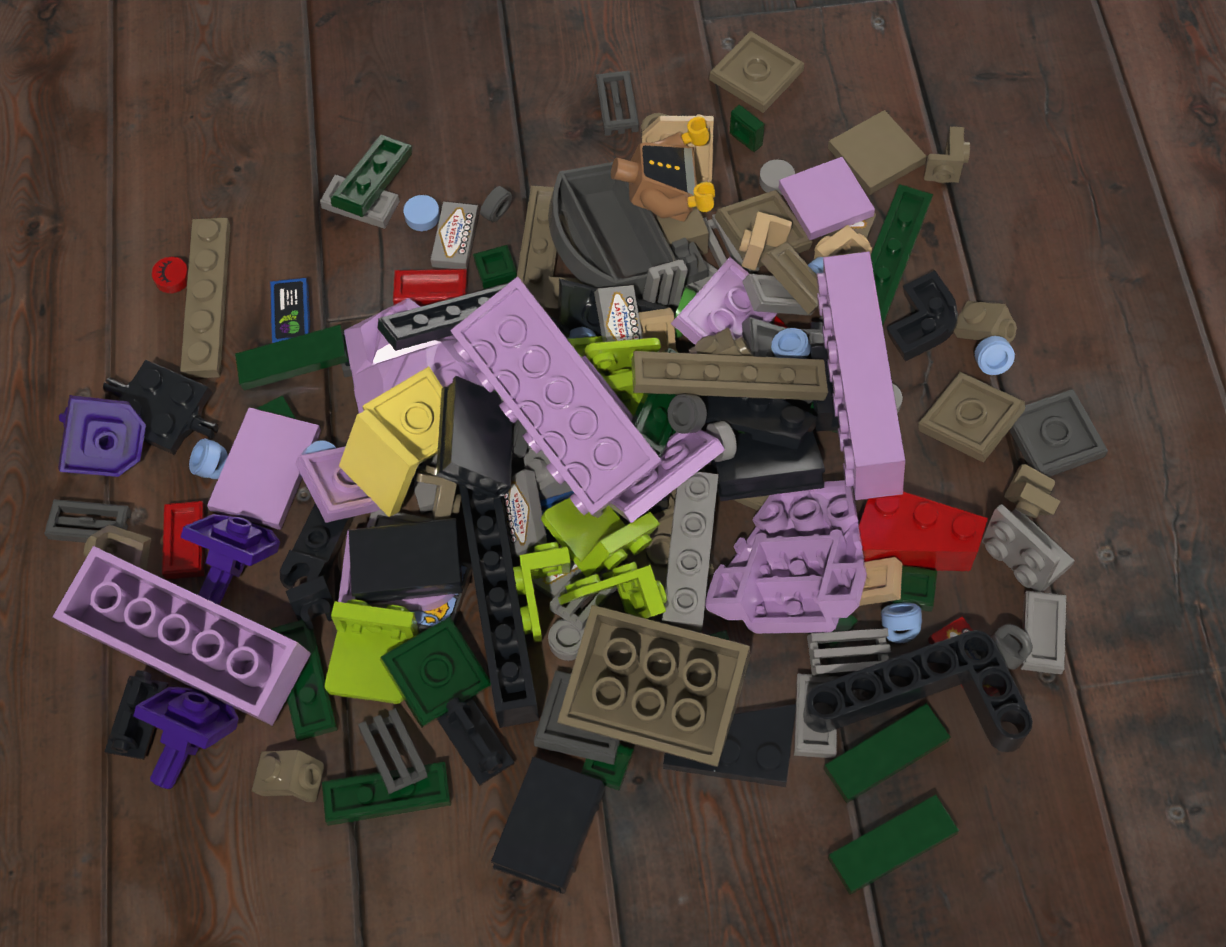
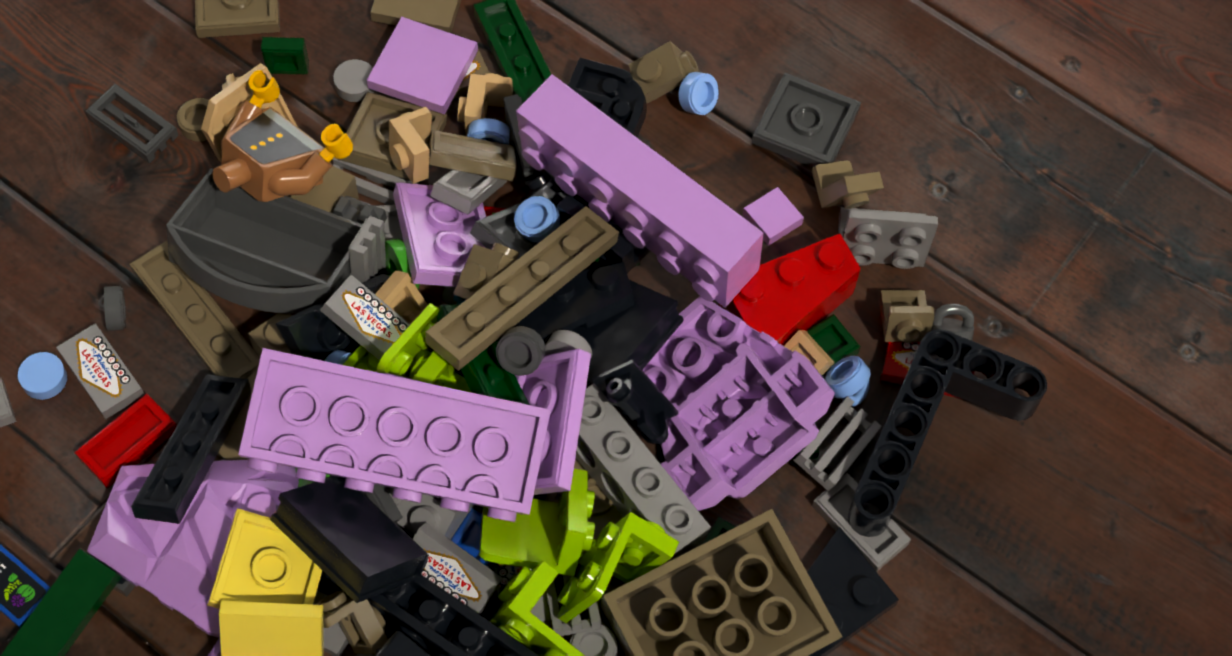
camera: 50 degrees left, 0 degrees up
(495, 266) = (171, 368): dark green tile -> none
(736, 505) = (638, 400): none -> black hinge
(886, 753) = (945, 502): dark green tile -> none
(892, 844) = (1025, 573): dark green tile -> none
(964, 476) = (773, 215): none -> lavender tile
(971, 416) = (733, 158): dark tan tile -> none
(983, 610) = (905, 315): none -> dark tan bracket
(1045, 625) = (951, 282): light grey tile -> none

